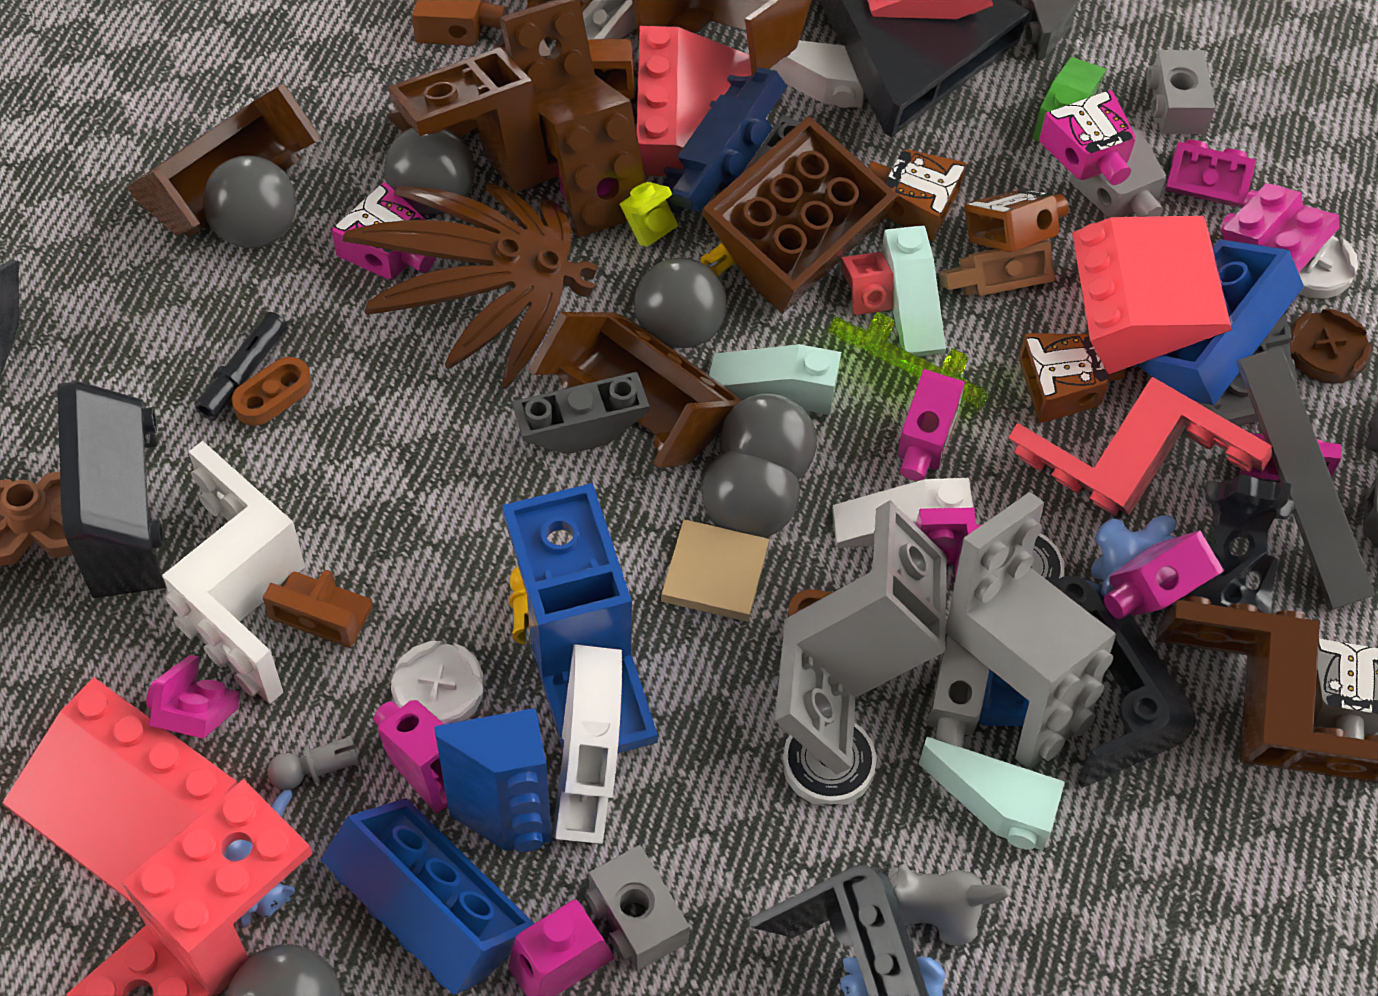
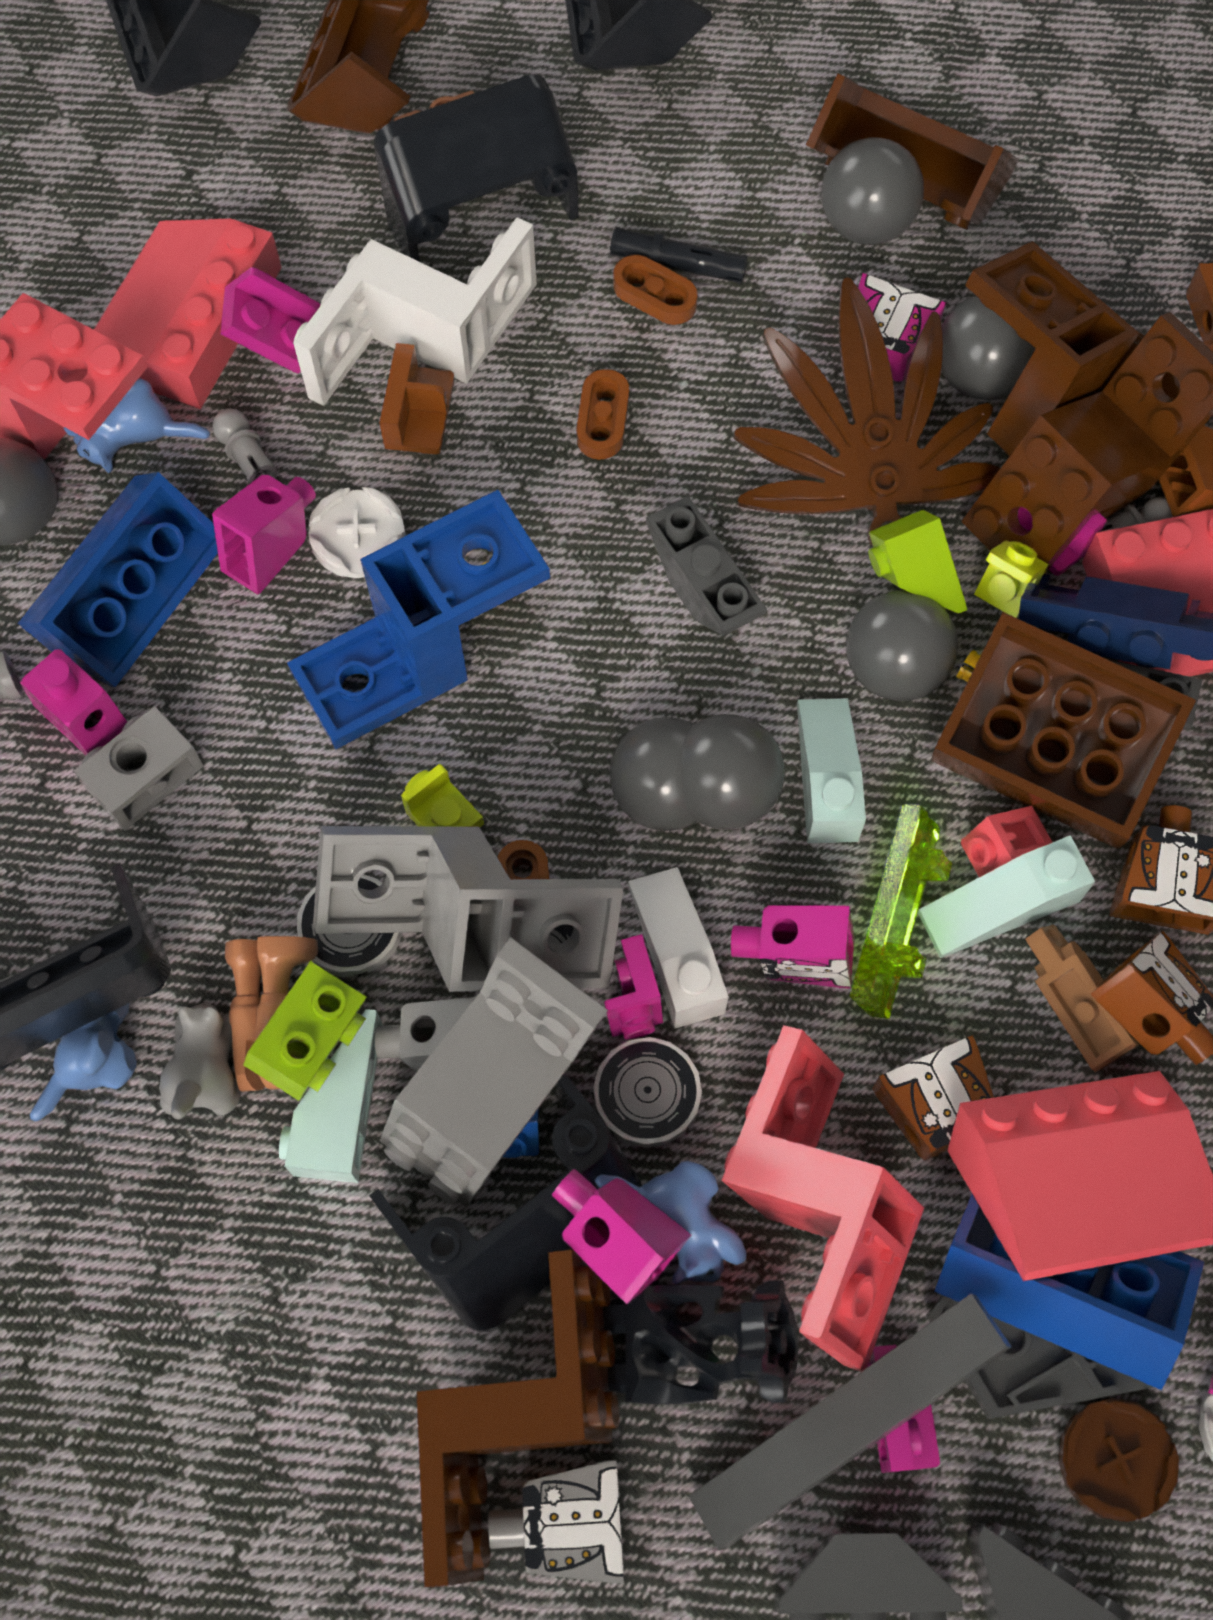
camera: 80 degrees right, 10 degrees up
(391, 459) = (602, 417): none -> dark orange plate
(498, 778) = (200, 587): blue slope -> none
(589, 744) = (295, 667): white slope -> none
(620, 259) = (917, 559): none -> lime slope
(682, 399) = (782, 653): reddish brown windscreen -> none
(715, 570) = (557, 761): tan tile -> none
(740, 667) = (435, 801): none -> neon yellow bracket
(916, 834) = (249, 1012): none -> nougat piece
(946, 782) = (309, 1026): none -> lime brick

